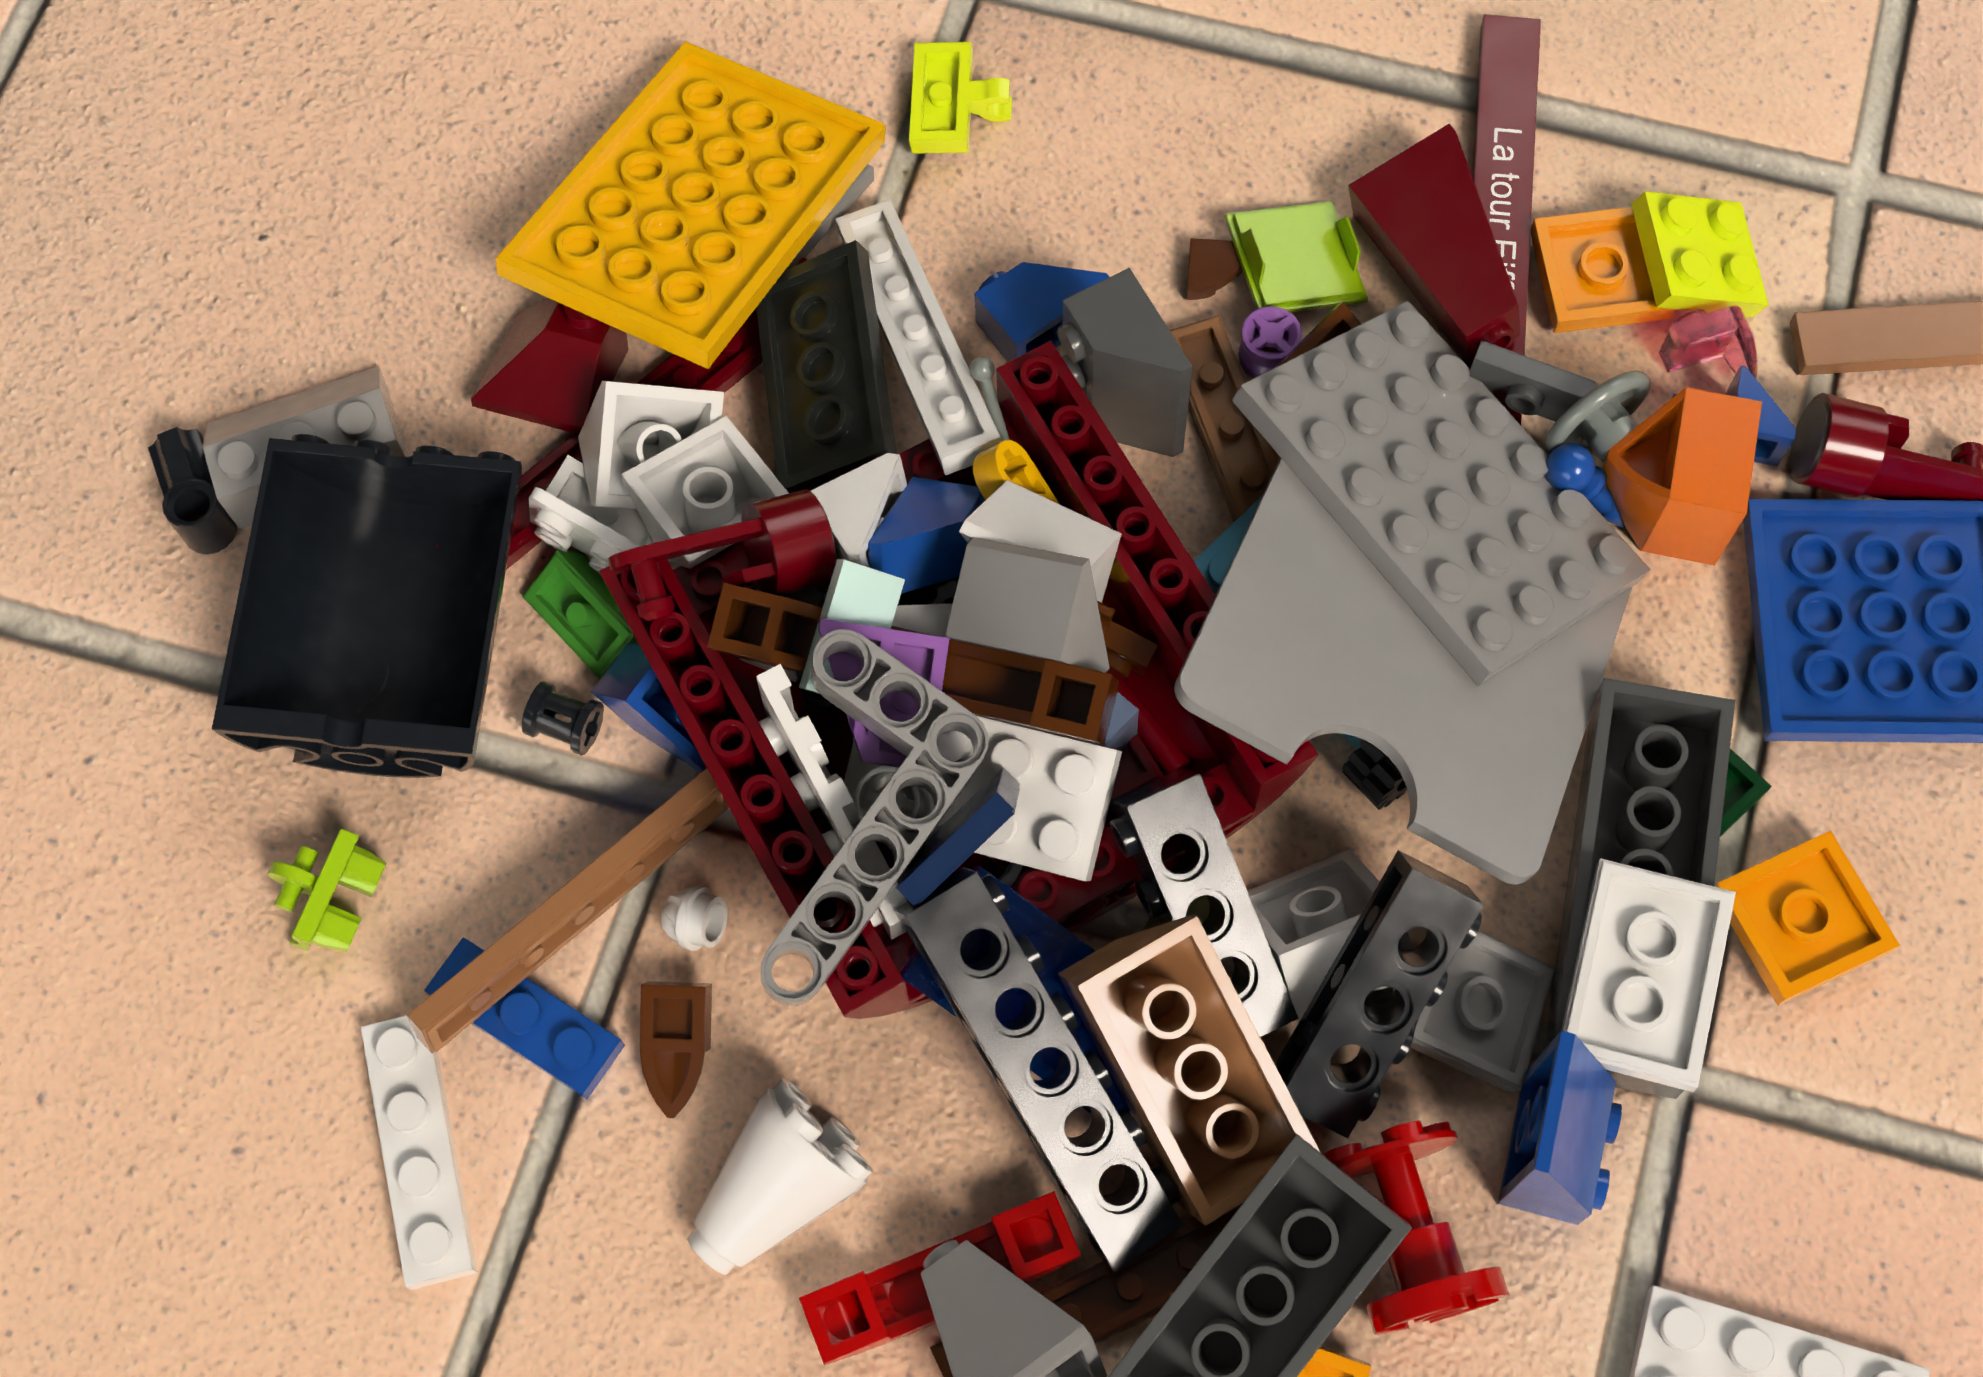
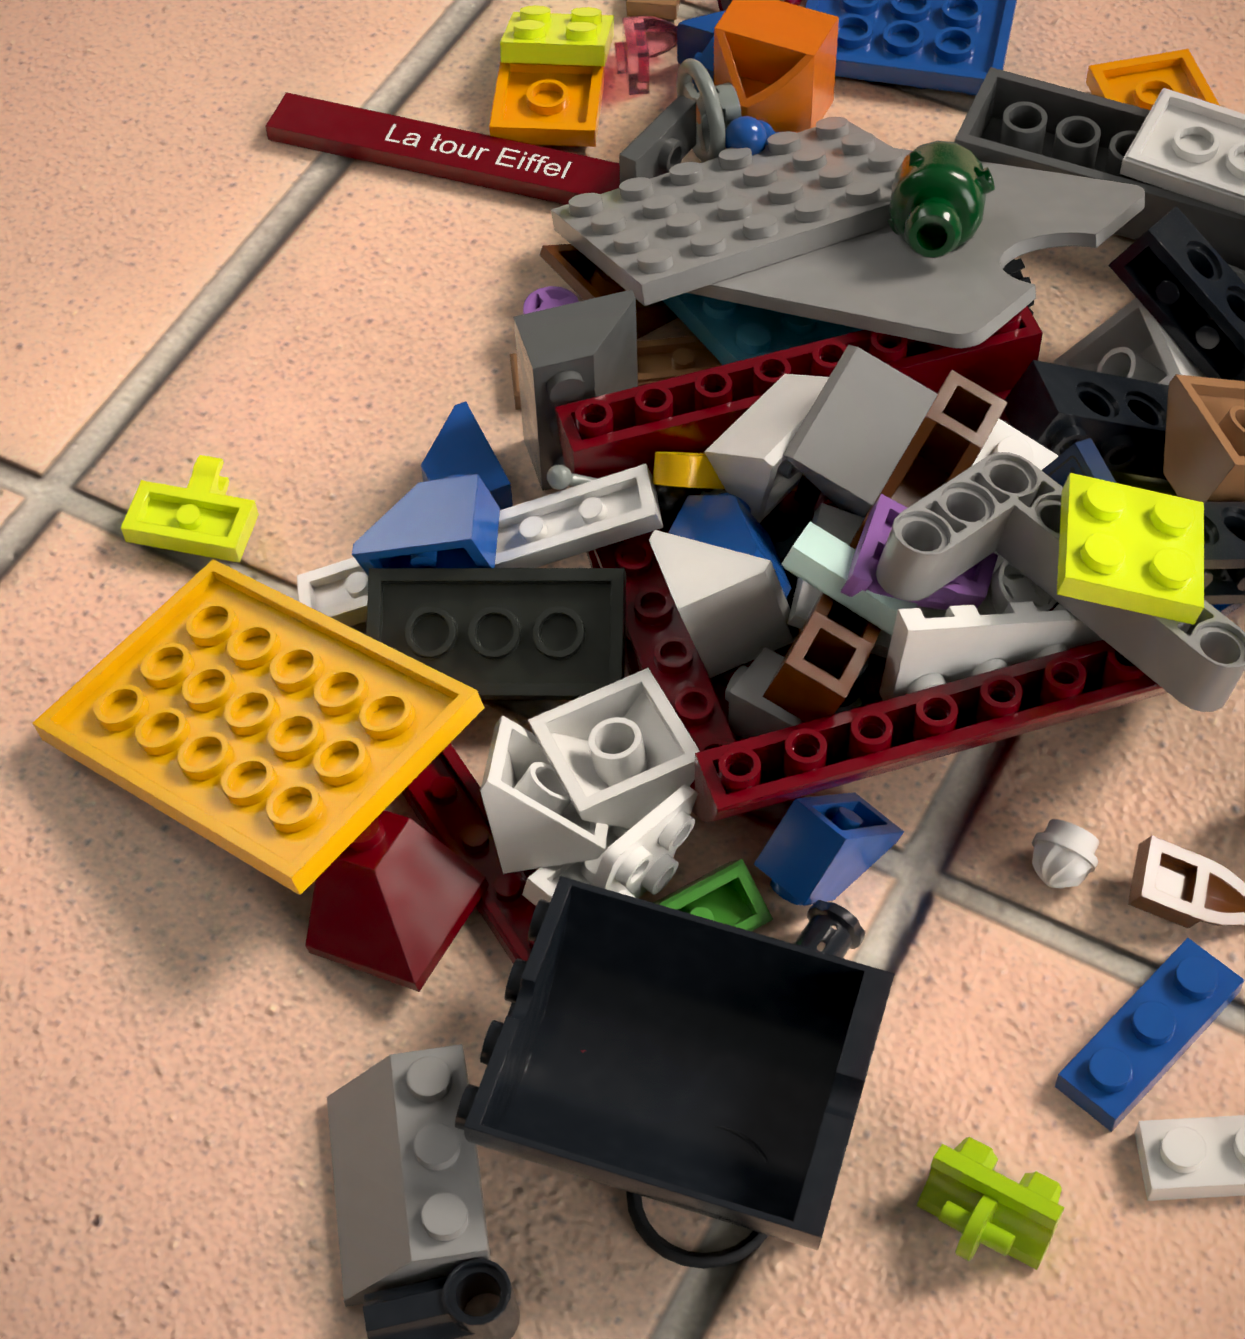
camera: 80 degrees left, 15 degrees down
(566, 913) = (1060, 948): medium nougat tile -> none
(783, 540) = (729, 661): dark red piece -> none
(875, 862) = (1131, 549): none -> neon yellow plate
(907, 285) = (435, 526): none -> slope
(1210, 267) = (452, 353): reddish brown tile -> none
(1298, 256) = (464, 288): lime piece -> none
(1415, 647) = (939, 198): none -> dark green piece
(1439, 241) = (500, 179): dark red slope -> none

